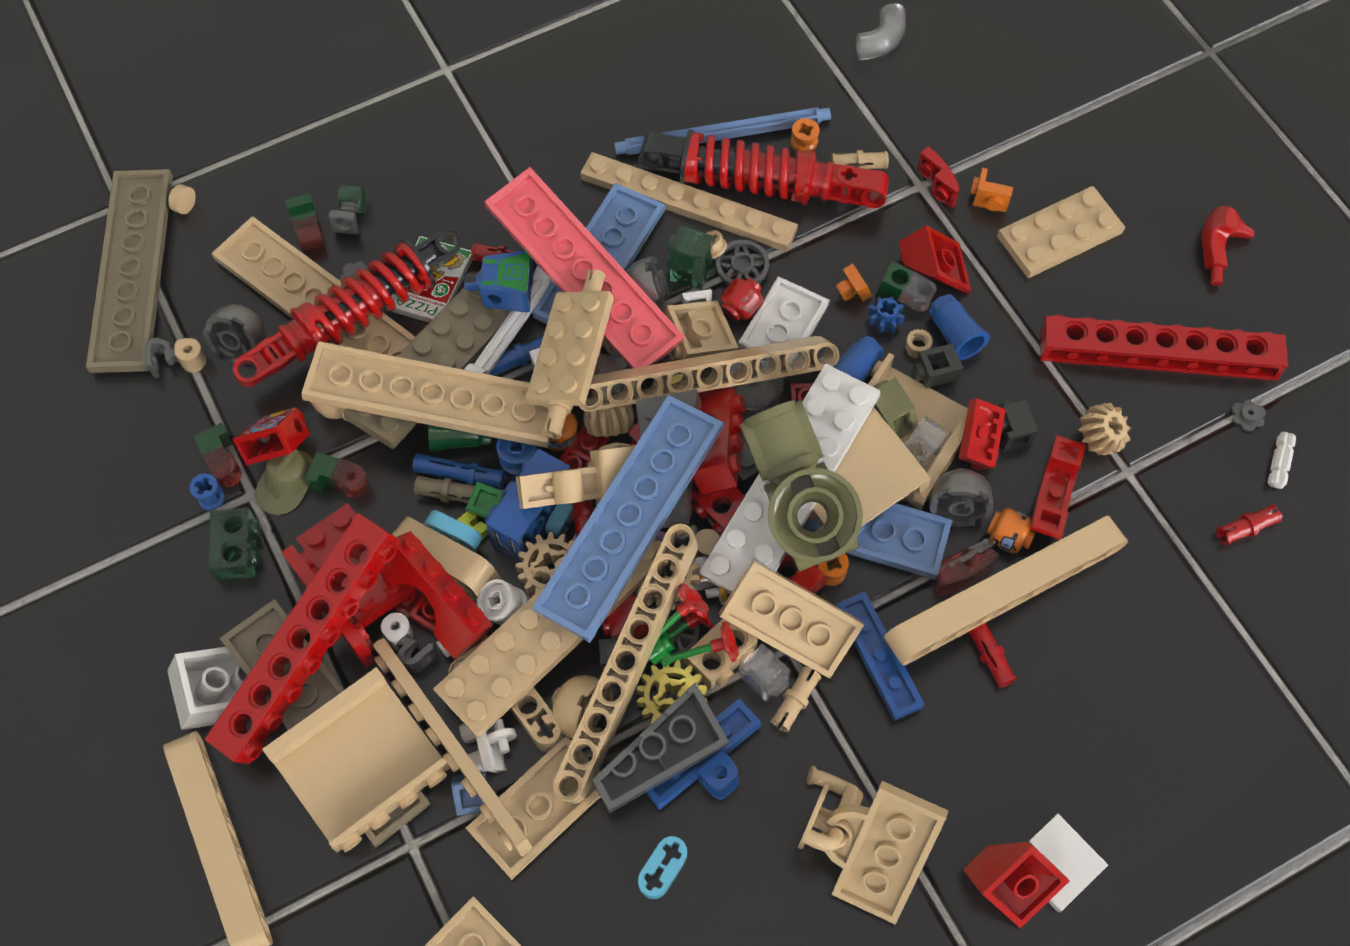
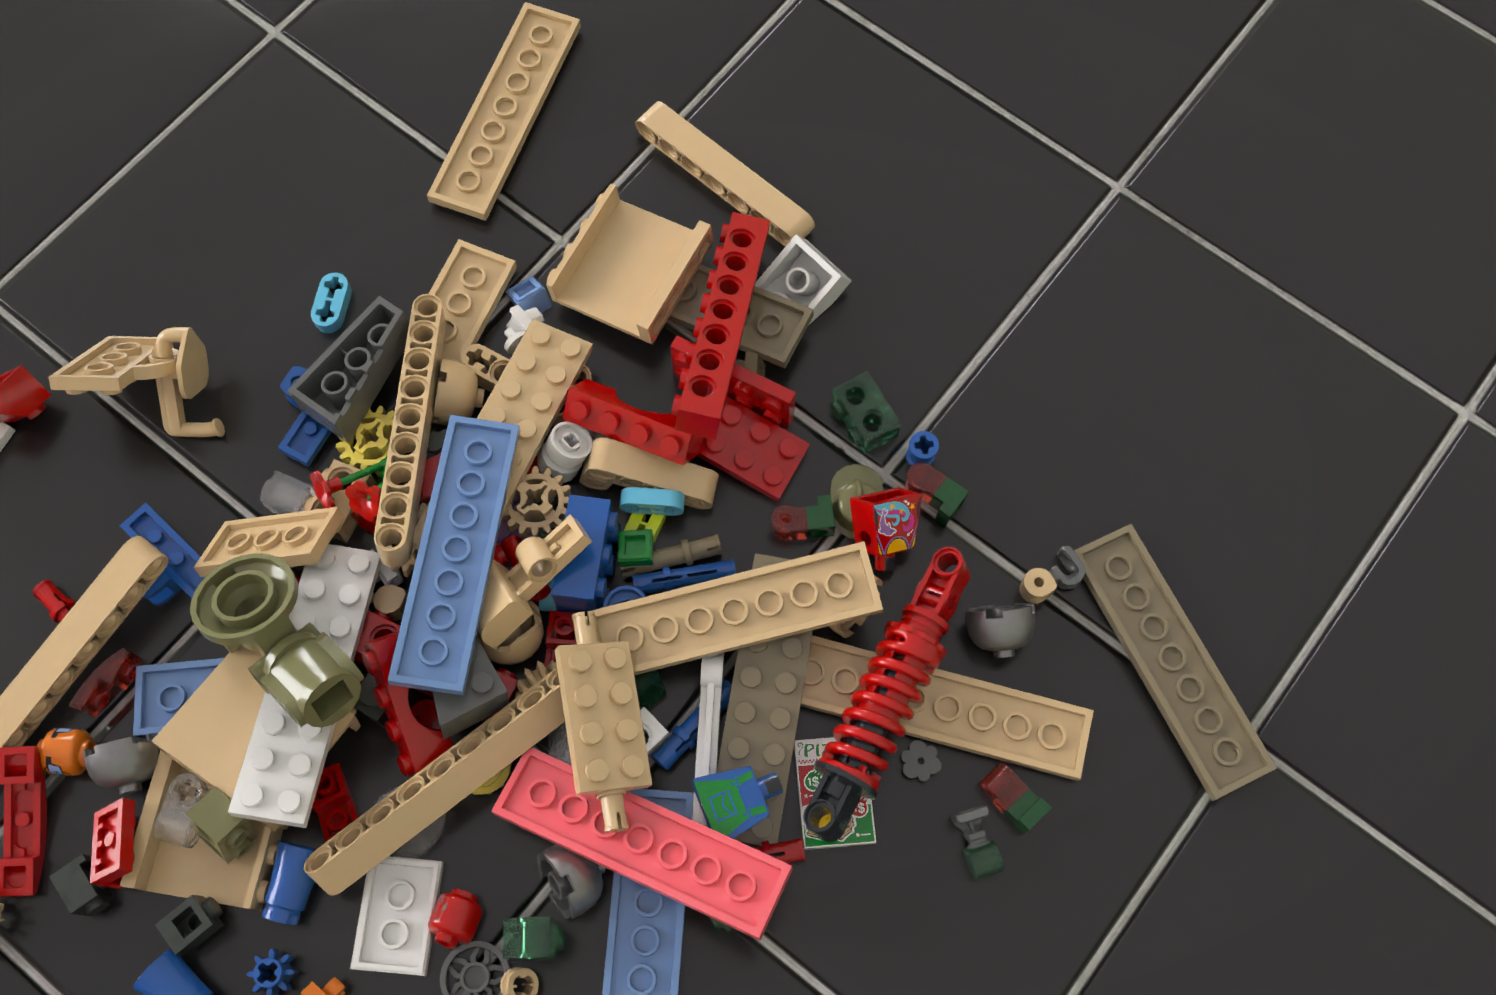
camera: 155 degrees right, 5 degrees up
(181, 199) = (1176, 768): tan tile -> none
(400, 636) = (660, 394): leg -> none
(456, 756) = (548, 305): tan plate -> none
(697, 296) = (514, 901): white slope -> none
(703, 328) = (489, 851): tan plate -> none
(795, 699) = (252, 487): tan pin -> none
(919, 335) = (217, 946): tan axle -> none

